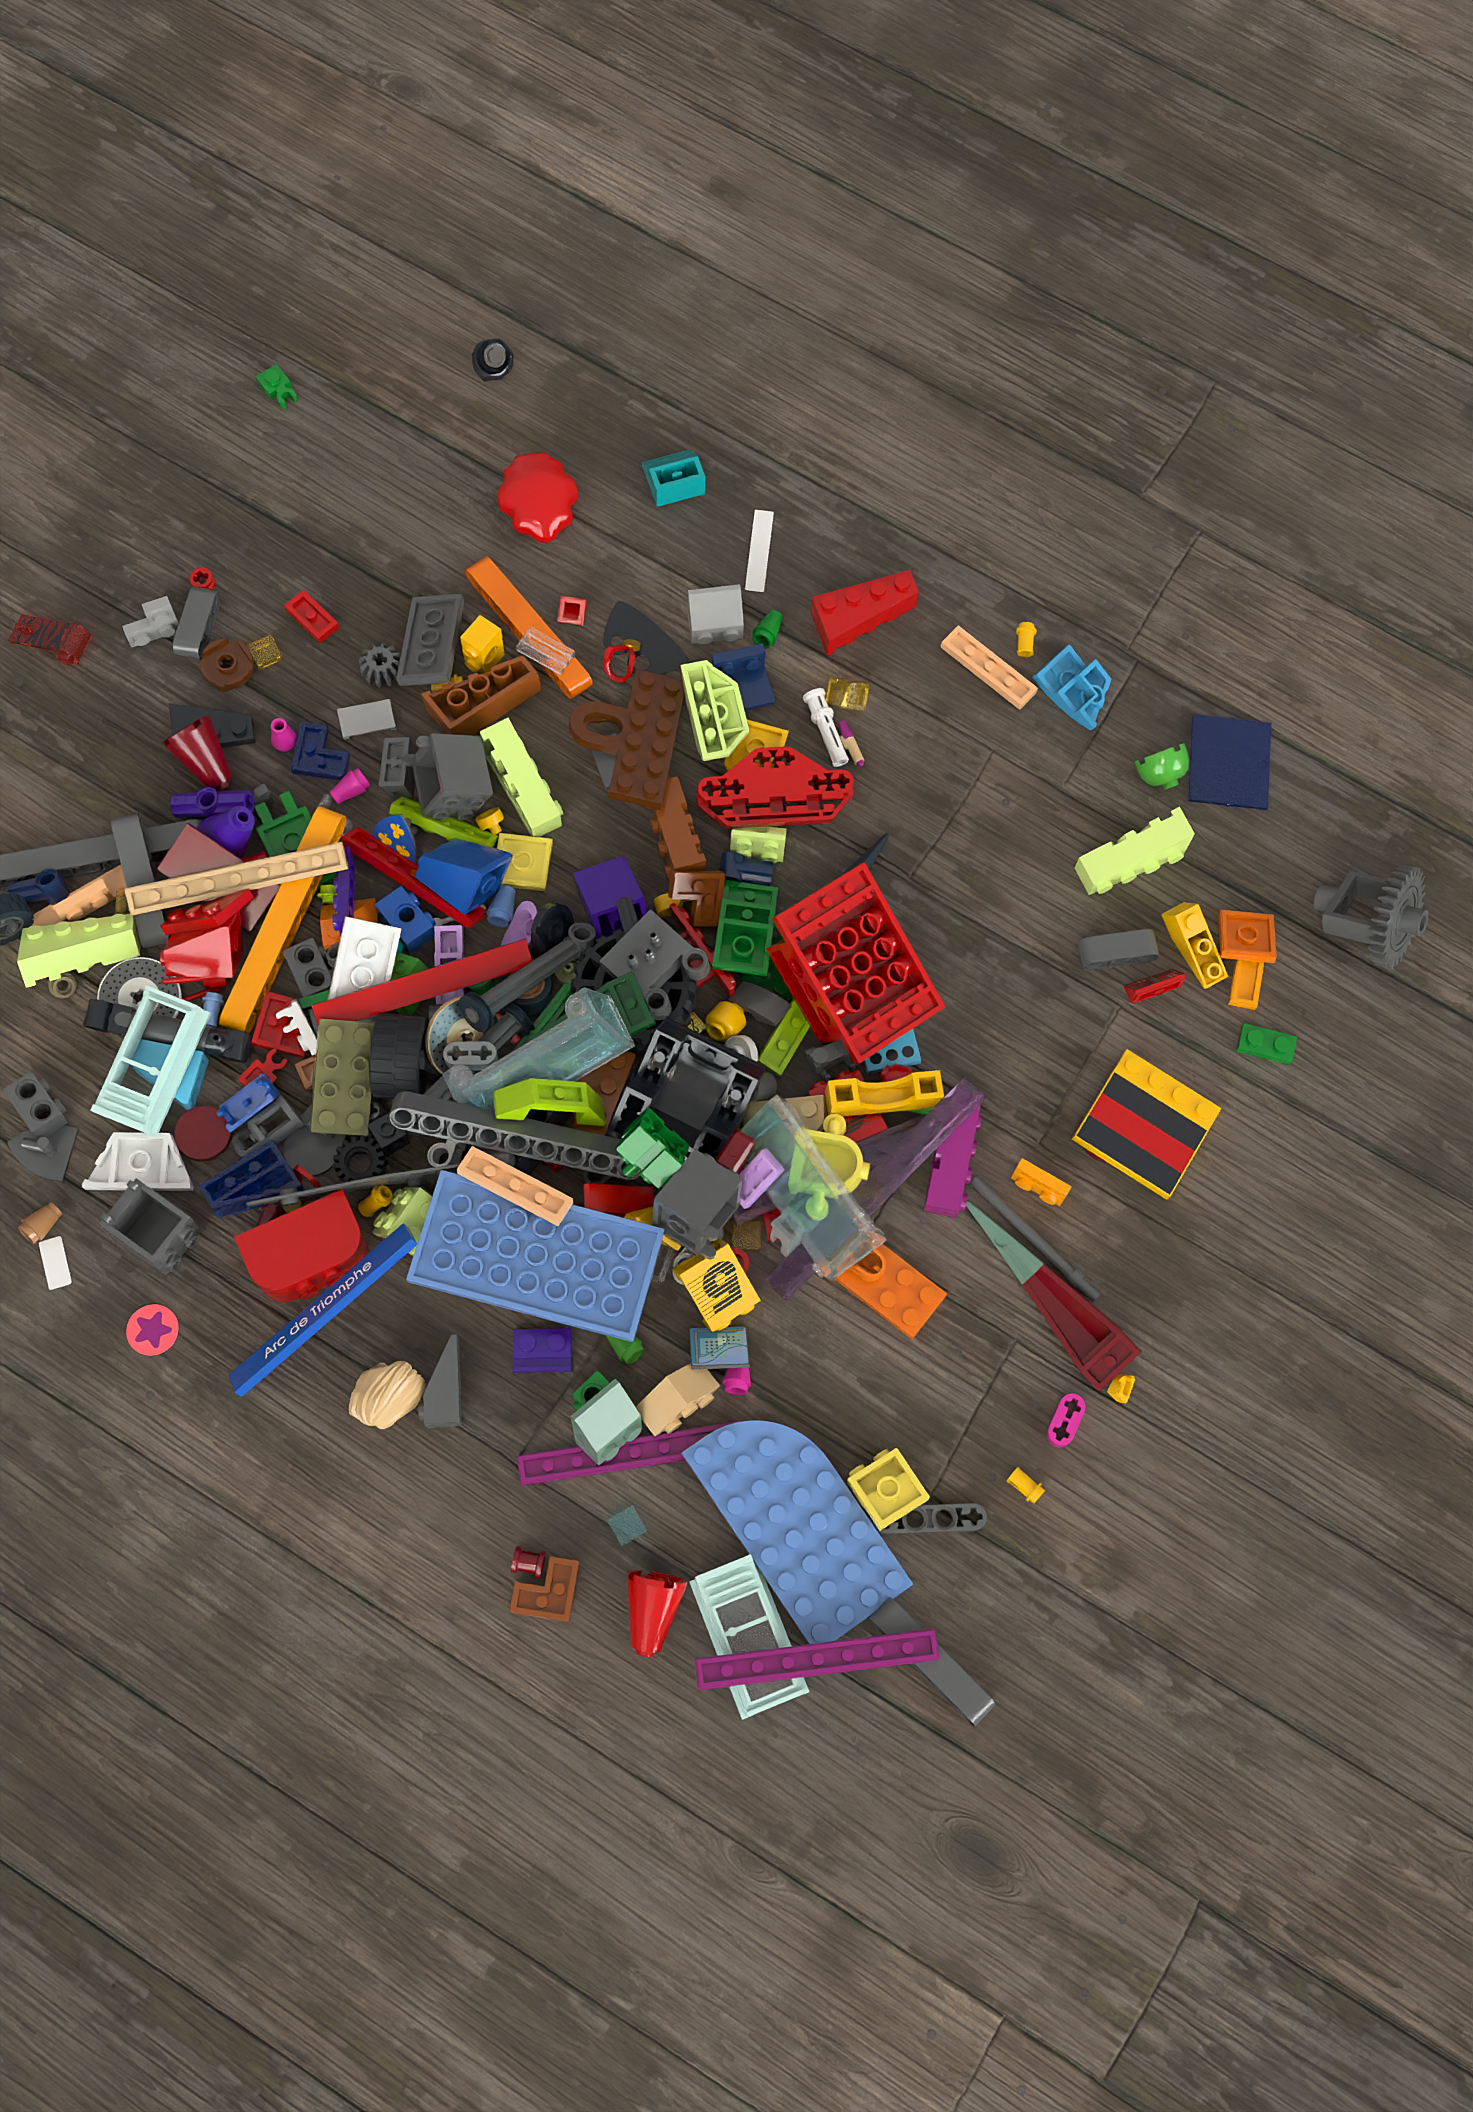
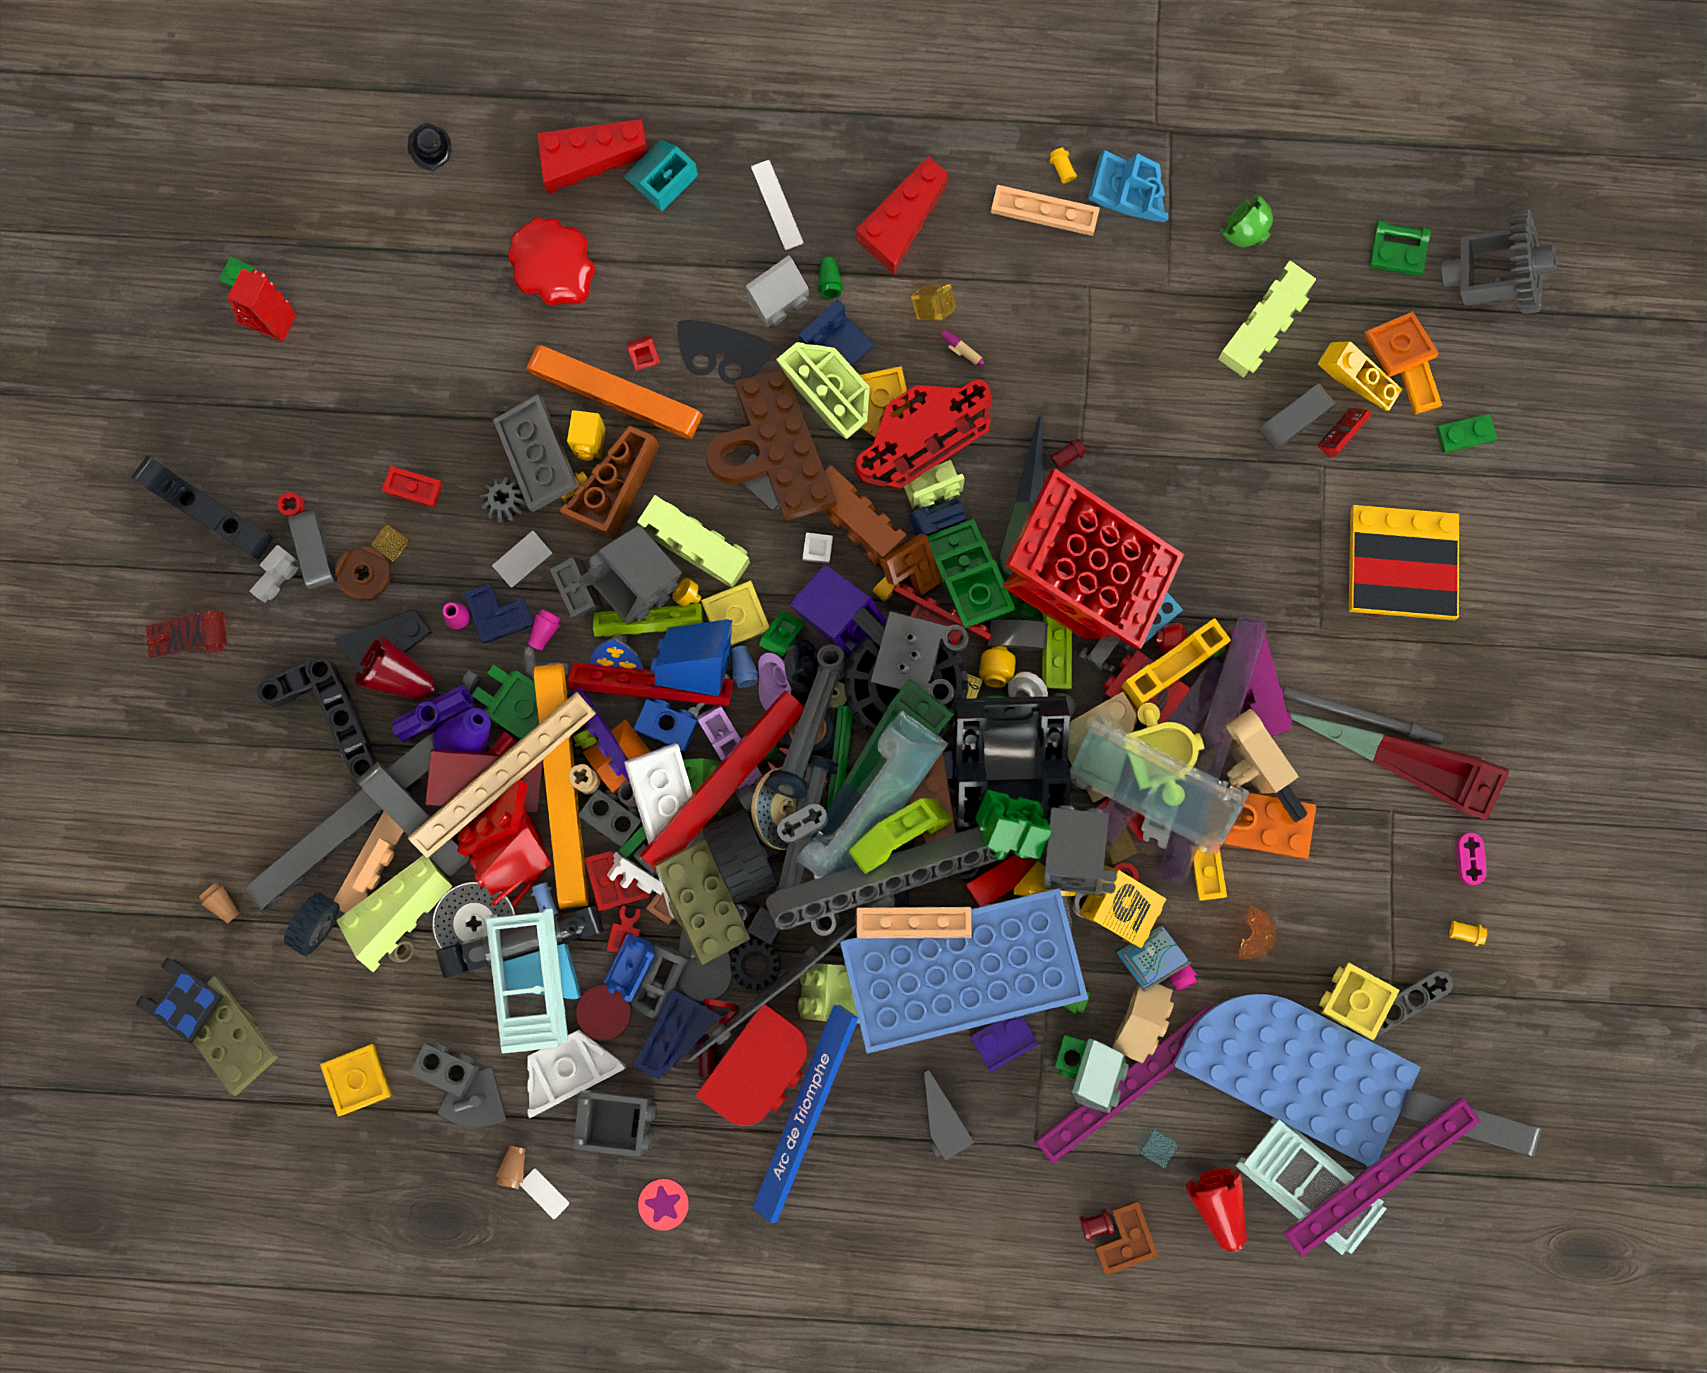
camera: 20 degrees left, 10 degrees up
(45, 886) = (330, 870): dark blue piece -> none
(121, 905) = (407, 847): clear yellow tile -> none
(127, 545) = (203, 509): none -> black beam
(136, 752) = (334, 701): none -> black beam
(273, 405) = (260, 305): none -> red wedge
(305, 920) = (579, 773): none -> tan piece
(379, 1197) = (788, 994): yellow pin -> none
(386, 1394) = (898, 1153): tan hair -> none
(538, 657) = (669, 410): clear tile -> none
(551, 891) = (781, 633): none -> green slope
(623, 427) = (589, 151): none -> red wedge
(626, 841) = (817, 548): none -> white plate
(630, 645) = (715, 360): red piece -> none
(736, 1151) = (1083, 789): dark red piece -> none
(758, 1177) = (1113, 796): lavender plate -> none
(813, 1302) = (1208, 876): none -> yellow plate
(822, 716) = (924, 337): white pin -> none
(829, 1382) = (1263, 935): none -> clear orange cylinder
(894, 877) = (1068, 454): none -> dark red pin
(913, 1222) = (1262, 763): none -> tan piece
(1046, 1185) = (1354, 666): light orange plate -> none
(1121, 1387) = (1503, 806): yellow tile -> none
(1230, 762) = (1301, 186): clear blue piece -> none
(1287, 863) = (1398, 256): none -> green plate

